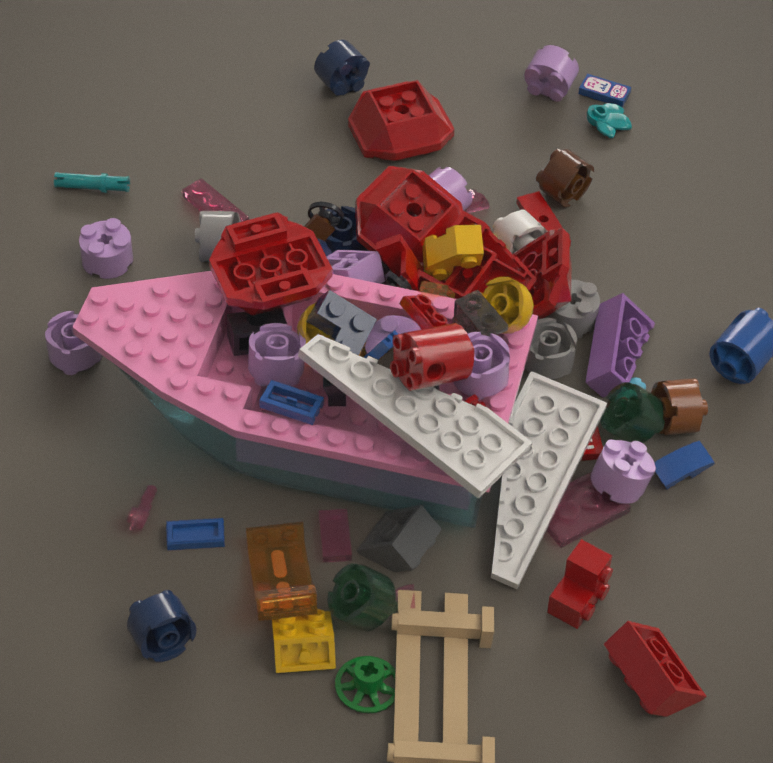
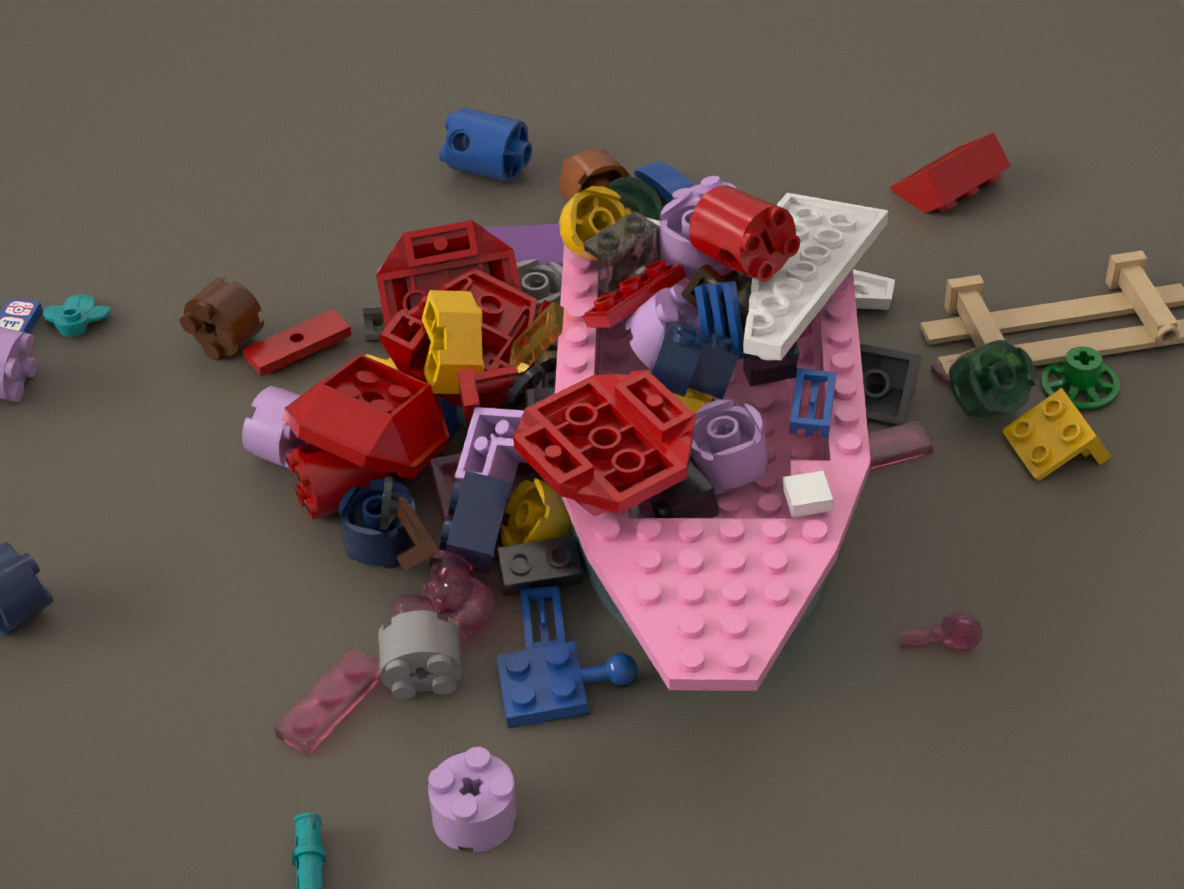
camera: 100 degrees left, 5 degrees down
(66, 349) = (687, 782): lavender brick -> none
(161, 626) = (1127, 550): dark blue brick -> none
(195, 534) = (952, 576): blue tile -> none
(205, 378) = (808, 493): none -> white tile
(280, 571) = (988, 468): clear orange panel -> none
(399, 122) = (114, 515): red piece -> none
(517, 230) = (346, 336): white brick -> none
(582, 585) = (899, 237): red brick -> none

